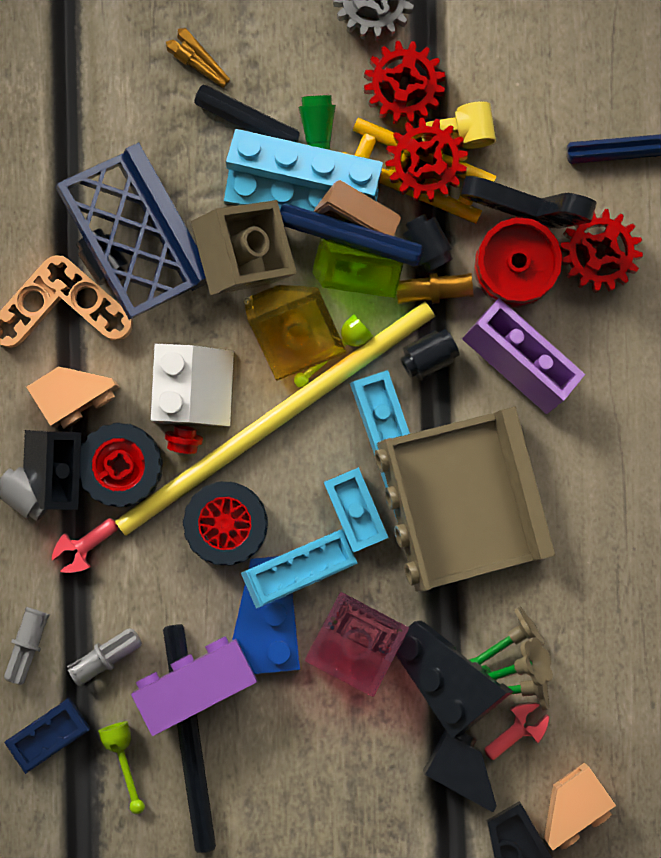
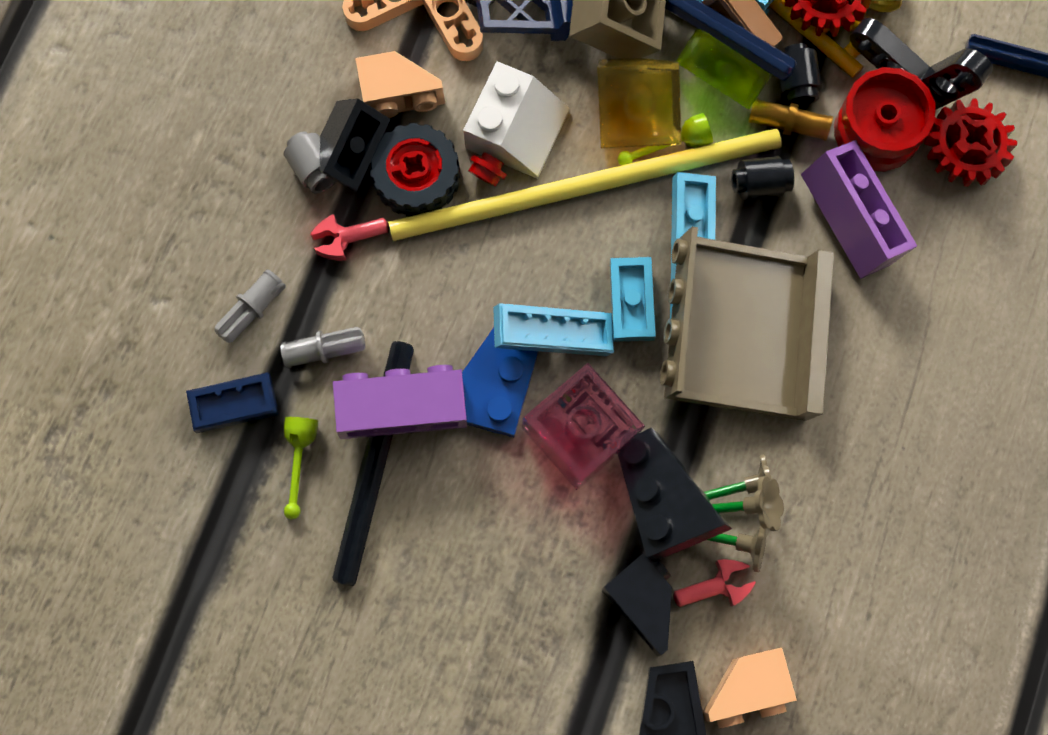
camera: 20 degrees right, 10 degrees down
(225, 523) = (496, 262): black wheel -> none

